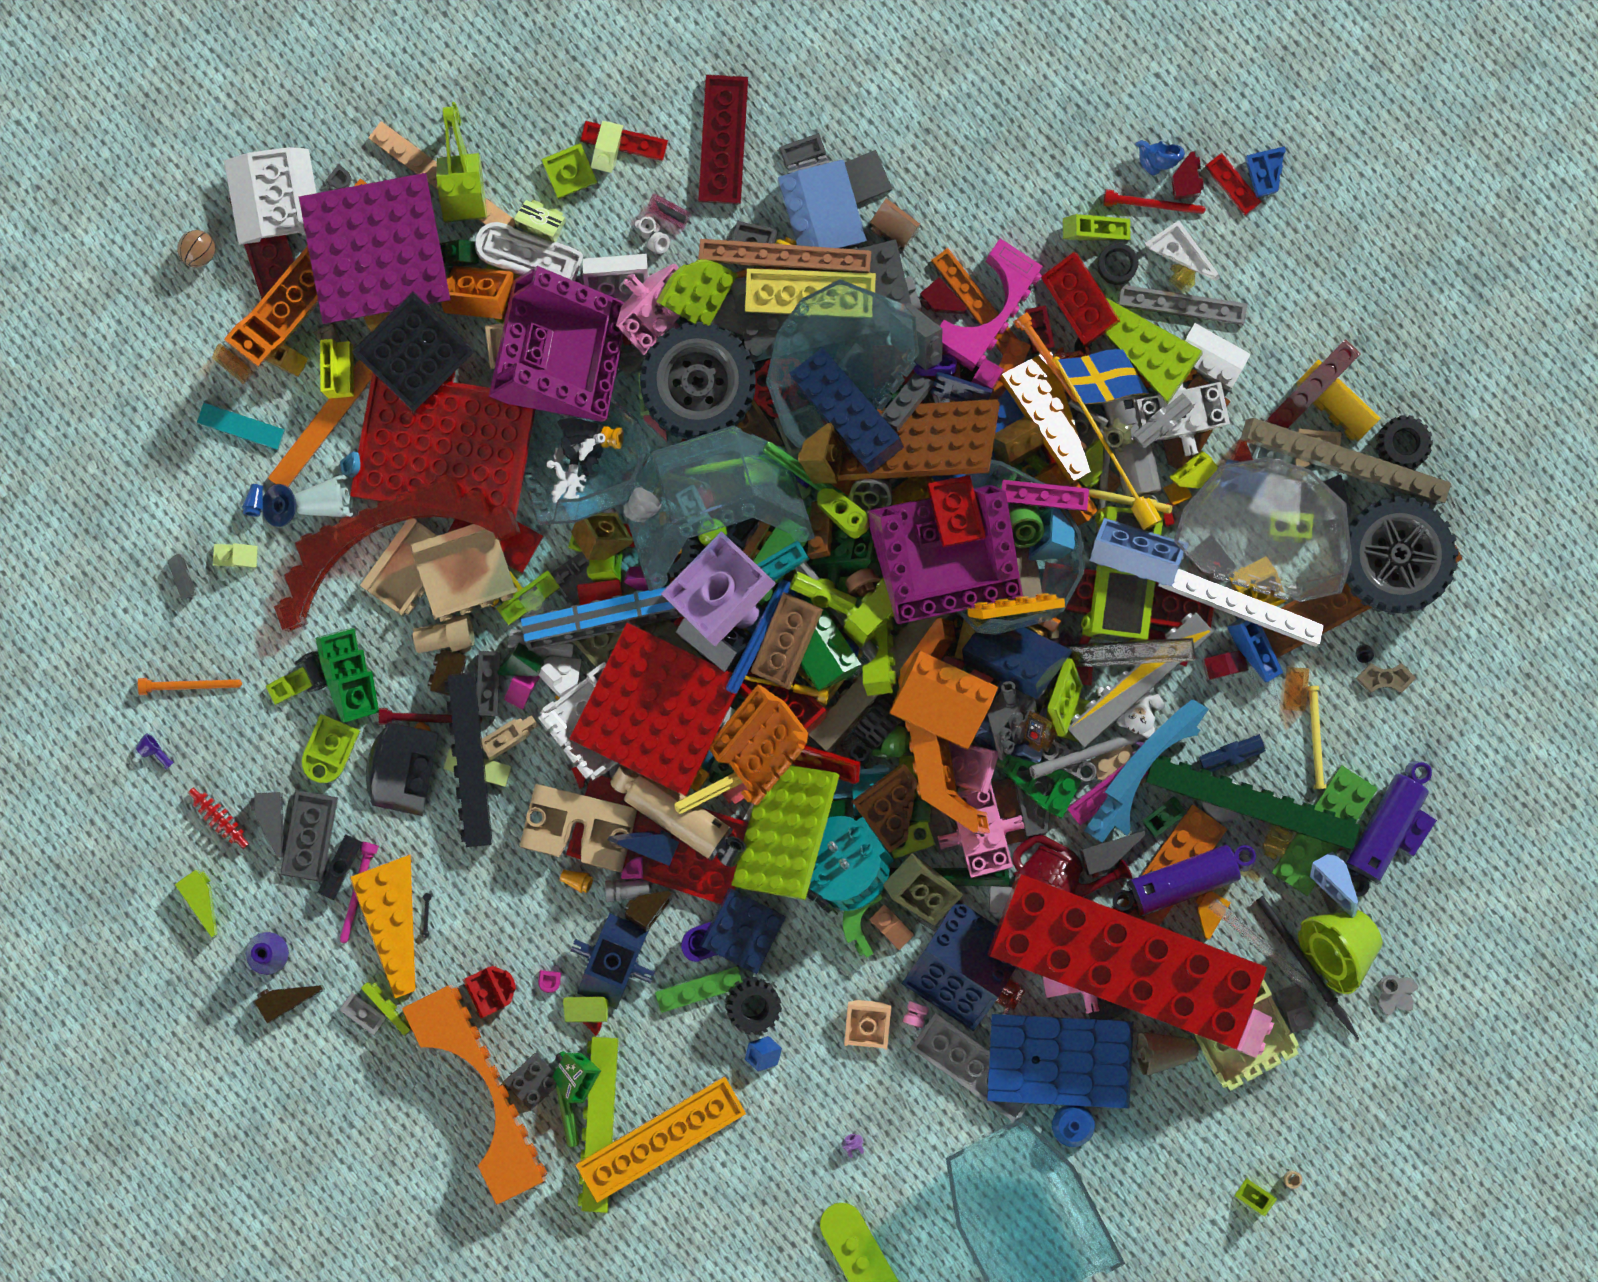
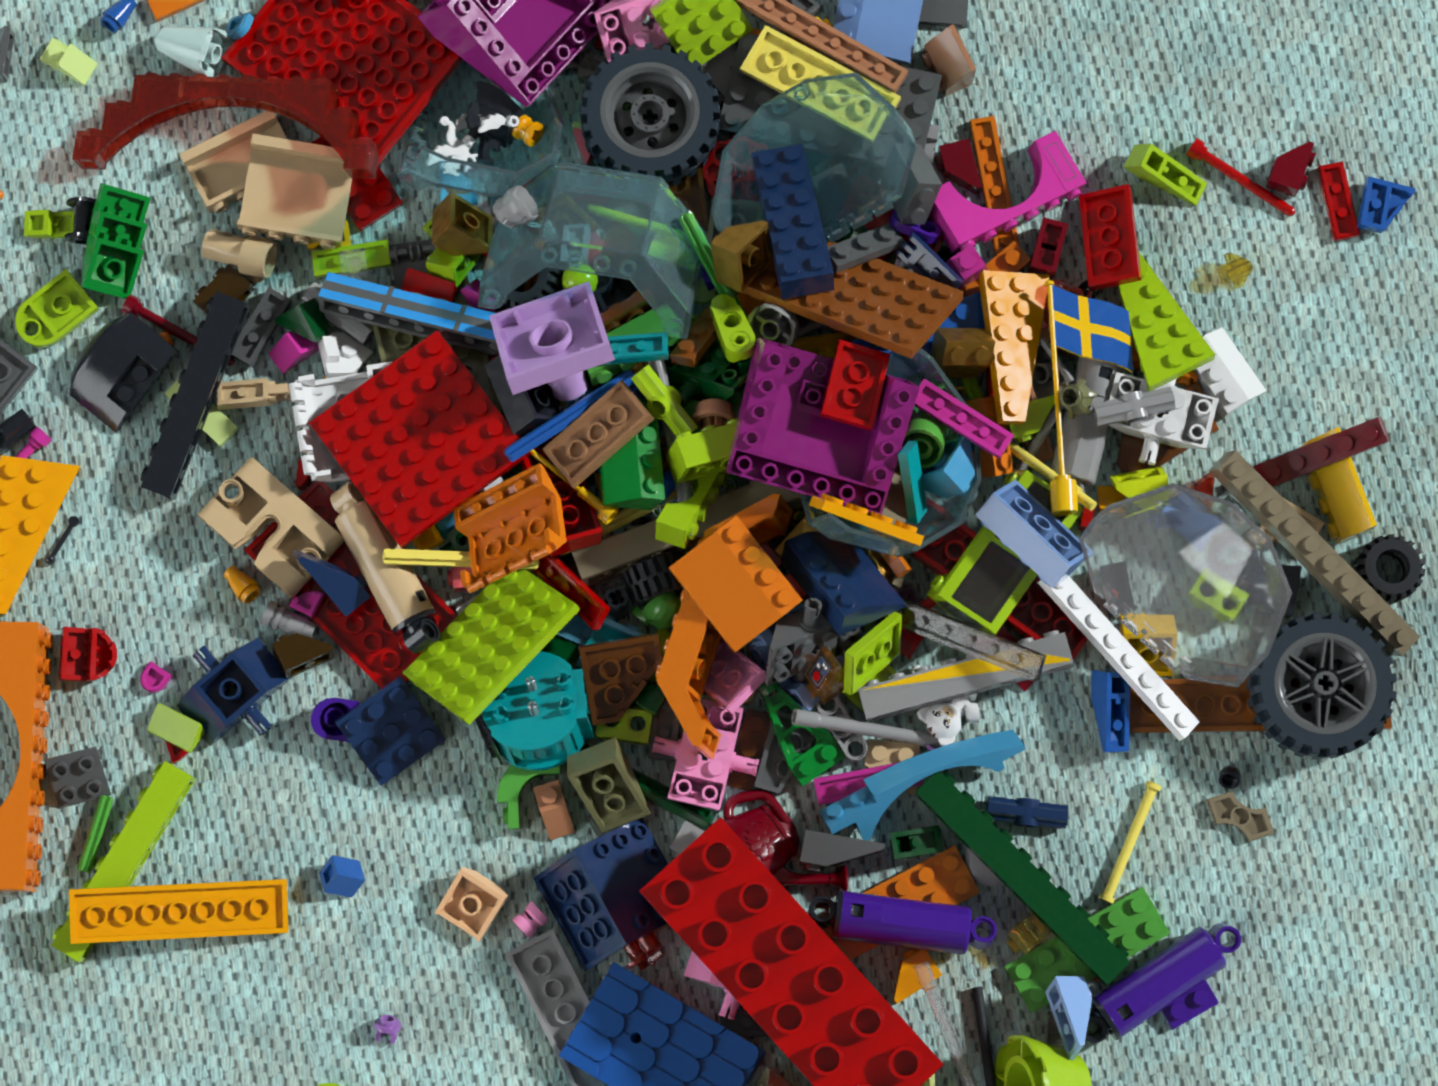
camera: 30 degrees right, 5 degrees down
(279, 505) = (141, 30): dark blue dish -> none
(575, 1076) = (123, 794): green torso -> none
(697, 989) = (310, 770): bright green plate -> none
(765, 1018) = (357, 839): black tyre -> none
(1024, 323) = (1035, 229): orange piece -> none
(1033, 560) = (912, 482): none -> teal tile
(1117, 247) = (1179, 205): black tyre -> none
(1159, 156) = (1271, 132): blue hair -> none
(1180, 247) = (1247, 238): white wing -> none
(1182, 304) = (1218, 301): light grey tile -> none
(1224, 665) = (1068, 711): dark red slope -> none
(1296, 689) = (1133, 777): clear orange slope -> none

